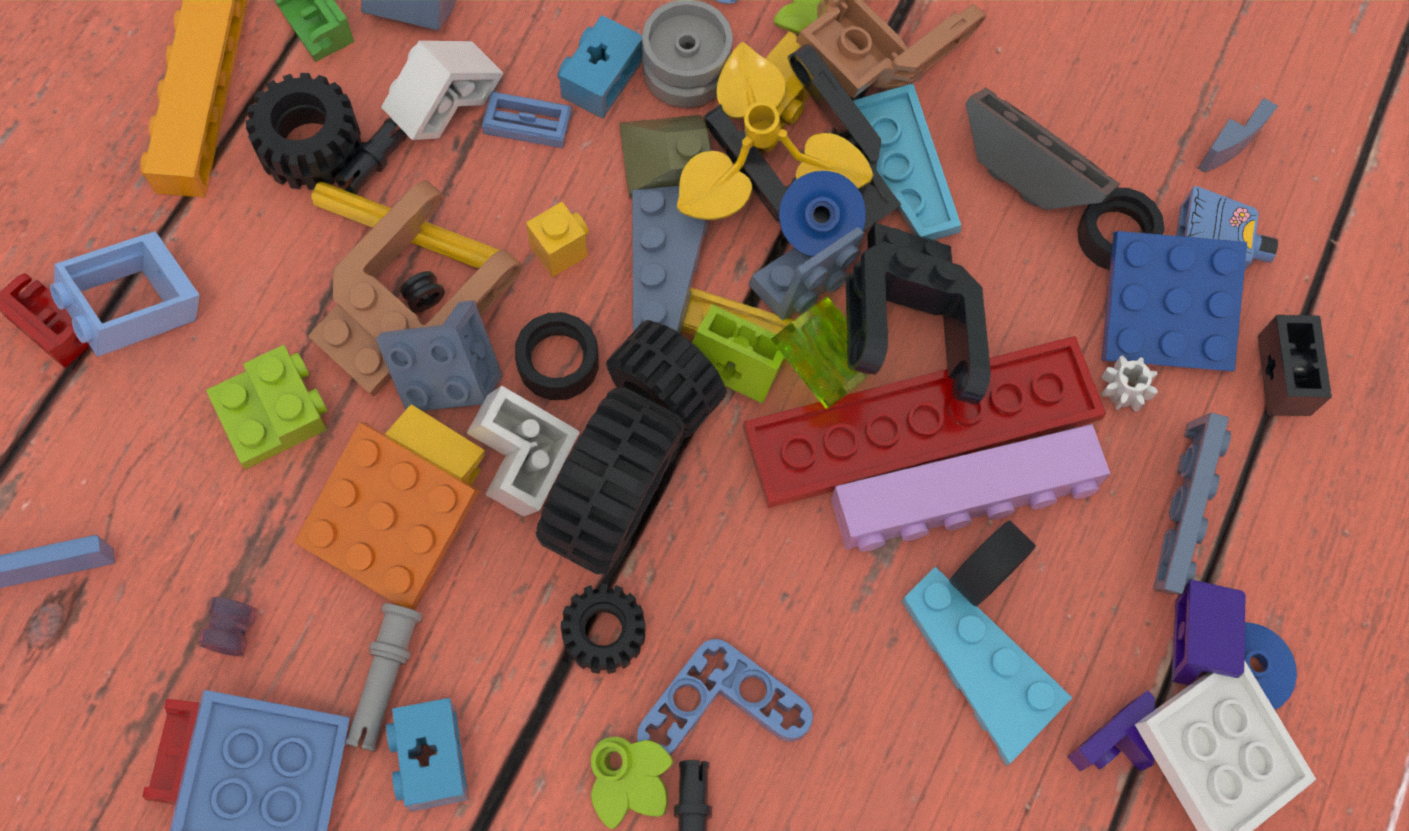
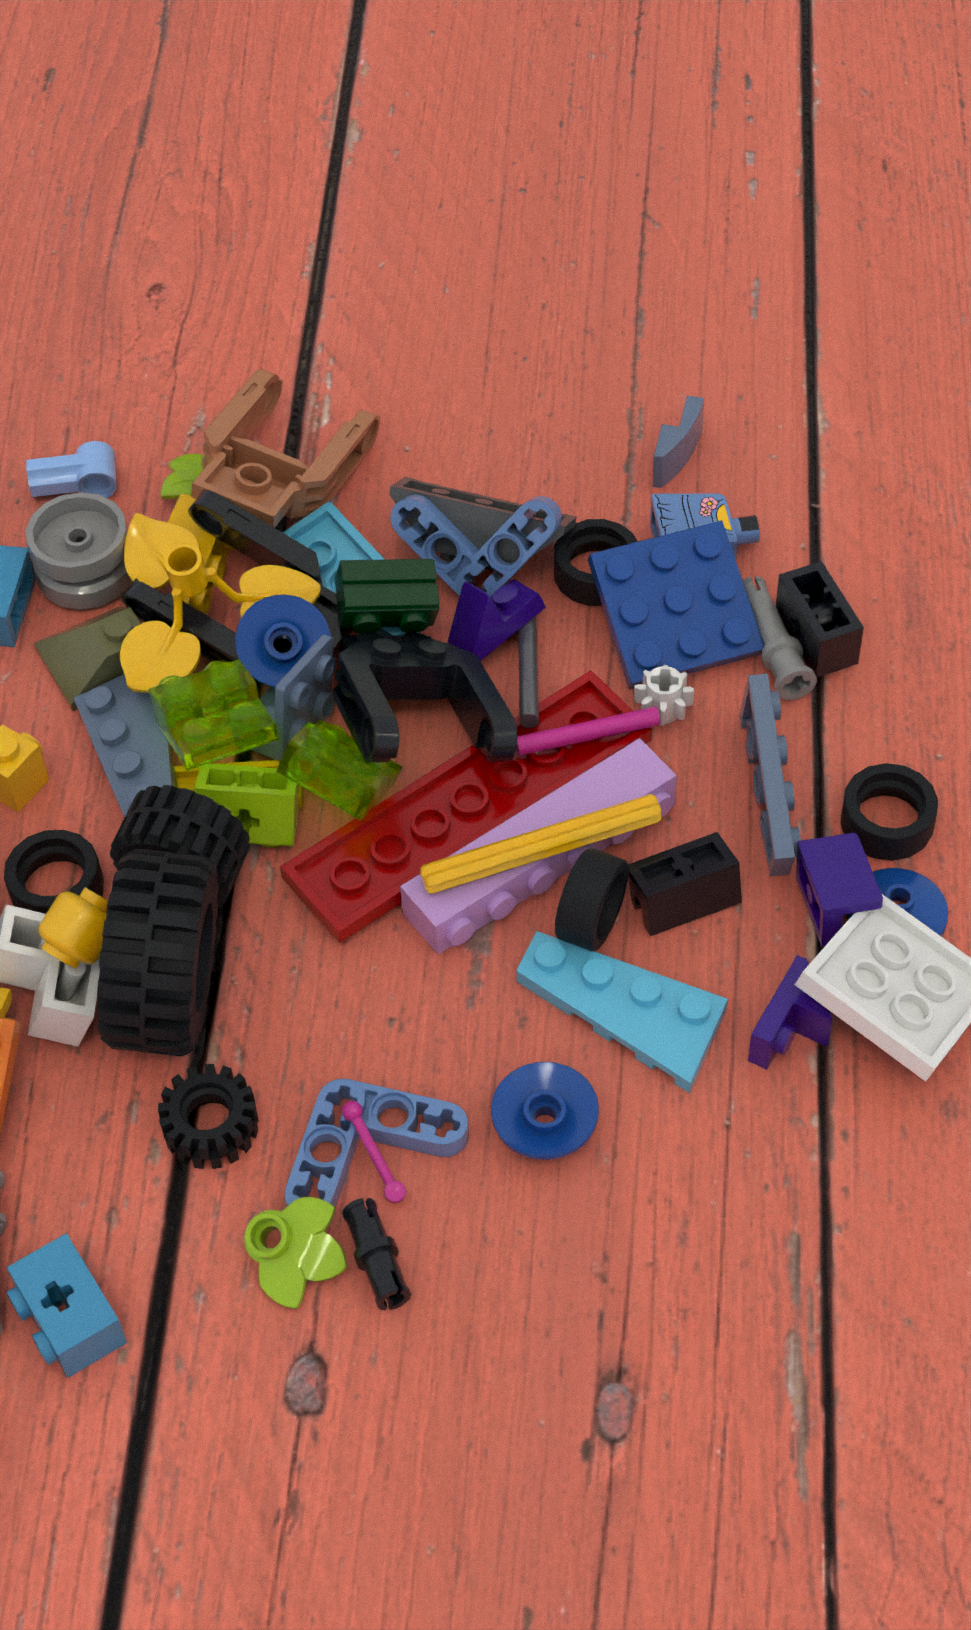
camera: 15 degrees left, 15 degrees down
(549, 433) = (74, 927): none -> yellow head
(729, 756) = (394, 1190): none -> dark pink hinge
(738, 261) = (212, 713): none -> clear neon green plate
(897, 725) = (539, 1091): none -> blue dish
(927, 202) = (387, 594): none -> dark green brick
(969, 497) = (540, 843): none -> yellow axle
(1005, 254) = (487, 621): none -> dark purple slope
(1012, 189) = (469, 558): none -> medium blue beam
(1025, 304) = (528, 674): none -> flat silver bar
(1052, 397) = (587, 731): none -> dark pink bar
(1078, 573) = (685, 883): none -> black hinge
(1248, 380) = (780, 652): none -> light grey pin
(1305, 553) = (896, 782): none -> black tyre

